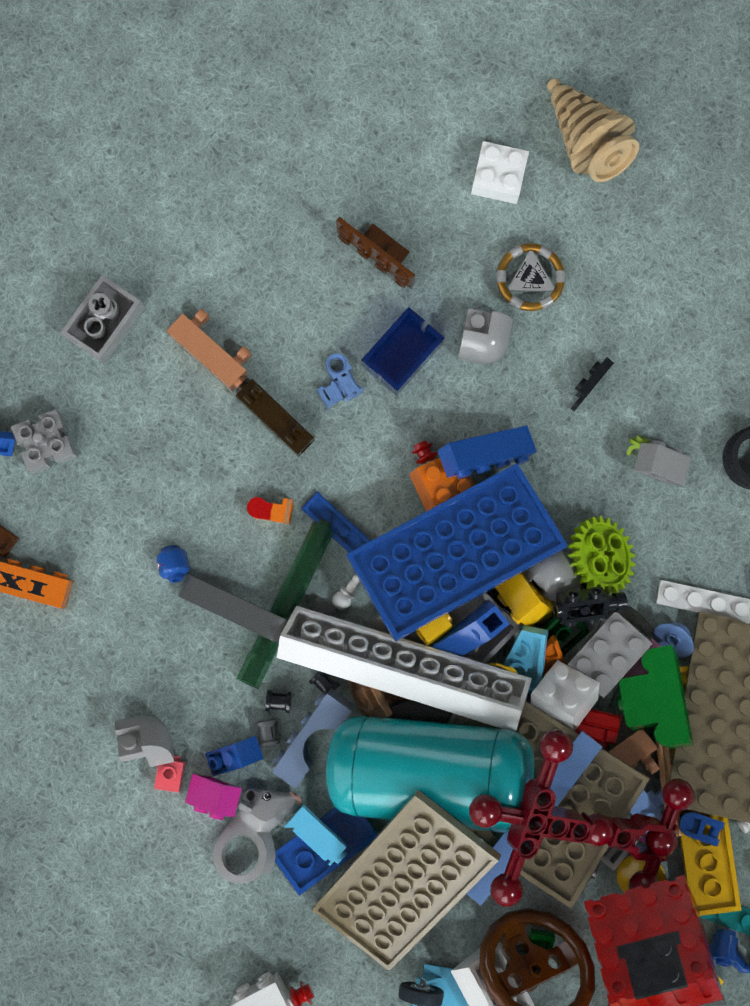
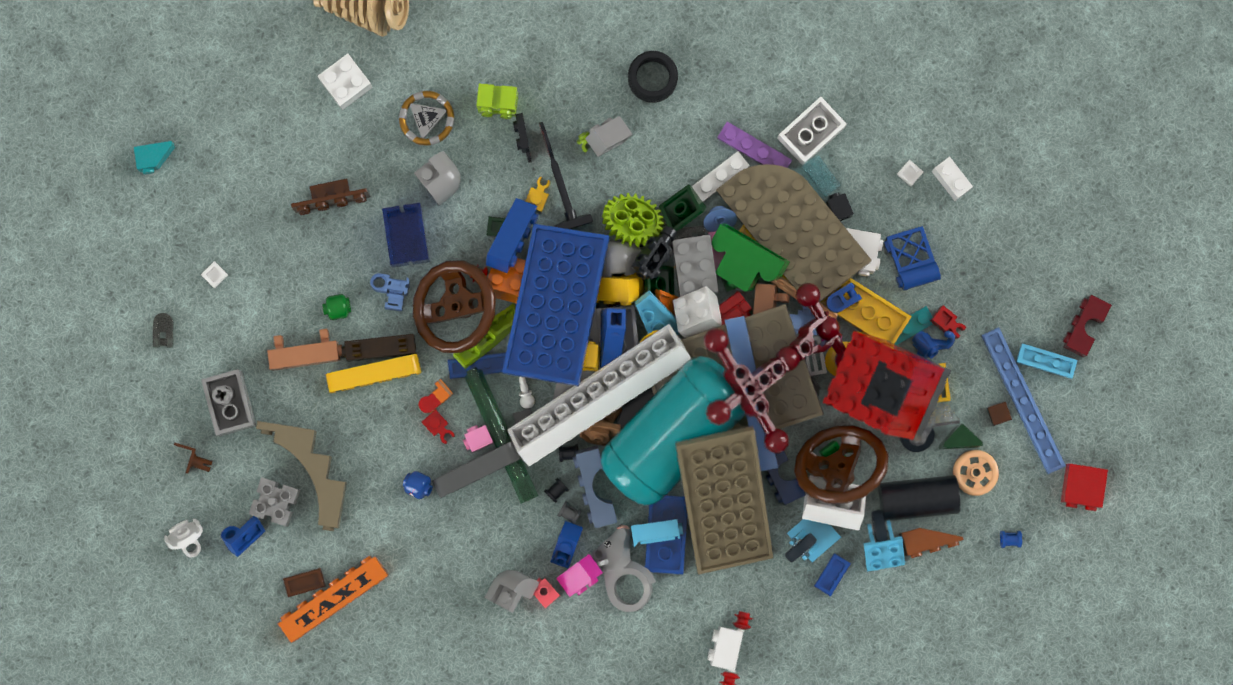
camera: 50 degrees left, 0 degrees up
(22, 333) = (195, 461): none -> reddish brown bracket
(119, 421) = (301, 444): none -> dark tan arch
(129, 198) = (163, 324): none -> clear smoke plate
(214, 206) = (214, 274): none -> white tile
(245, 432) = (372, 373): none -> yellow beam
(246, 532) = (436, 424): none -> red plate
(264, 583) = (477, 438): none -> bright pink brick
(277, 56) = (152, 156): none -> teal slope
(279, 344) = (337, 307): none -> green head
(369, 511) = (498, 331): none -> lime slope
(375, 454) = (456, 305): none -> reddish brown piece
(465, 930) = (786, 490): none -> dark blue arch
(482, 427) = (494, 225): none -> dark green tile
(546, 445) = (537, 196): none -> yellow plate
(551, 496) = (572, 220): none -> black piece
(605, 328) = (497, 100): none -> lime brick
(654, 593) = (682, 208): none -> dark green slope

